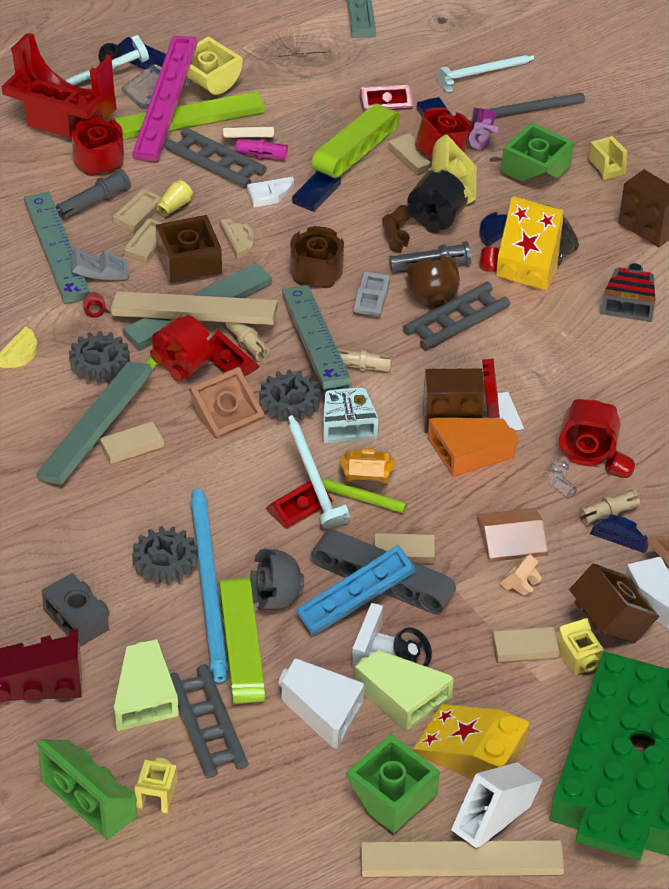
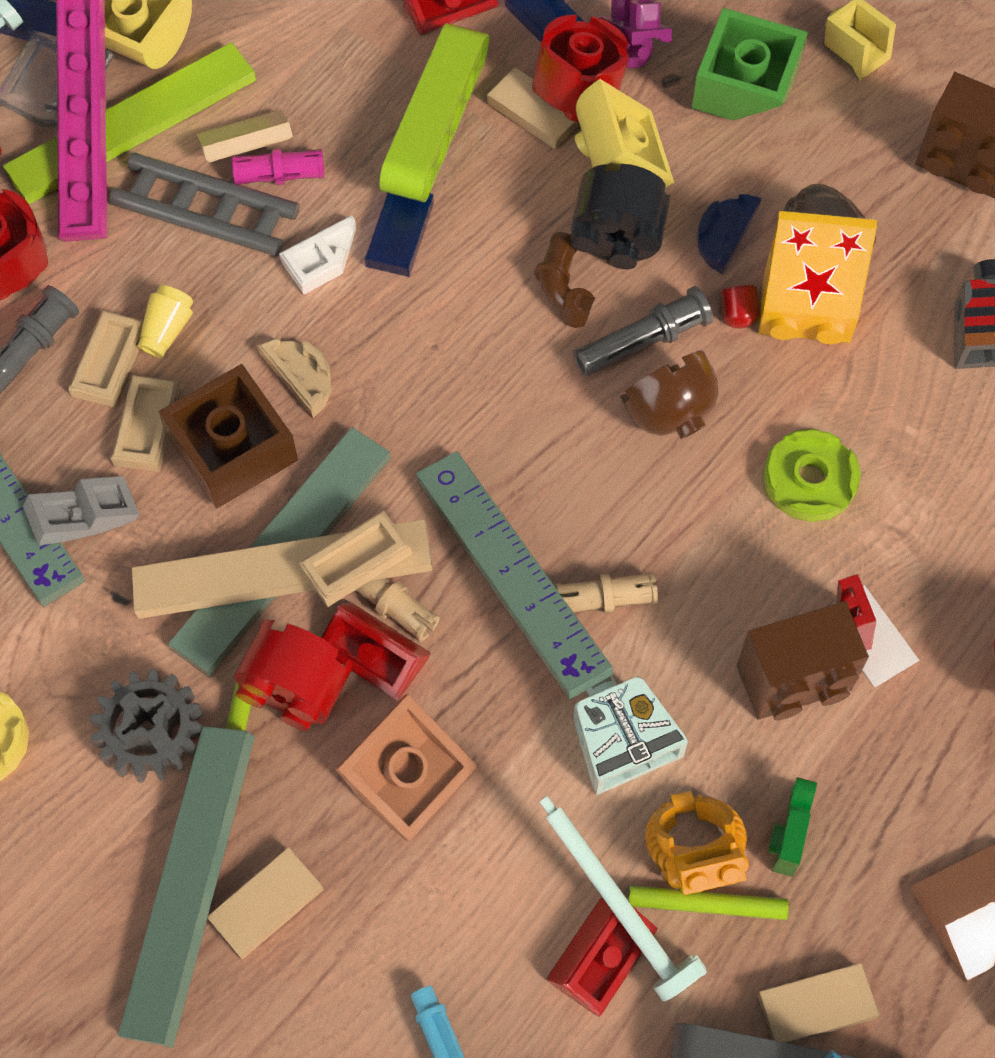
camera: 15 degrees left, 20 degrees up
(93, 298) = (95, 587): red piece -> none
(234, 306) = (355, 558): none -> tan tile
(290, 395) = (529, 721): dark grey gear -> none
(316, 257) = (456, 391): reddish brown brick -> none
(372, 294) = (570, 440): light grey slope -> none
(418, 476) = (789, 838): none -> green plate
(452, 327) = (729, 472): dark grey bar -> none
(471, 442) = (852, 733): orange slope -> none
(500, 350) = (811, 500): none -> lime tile

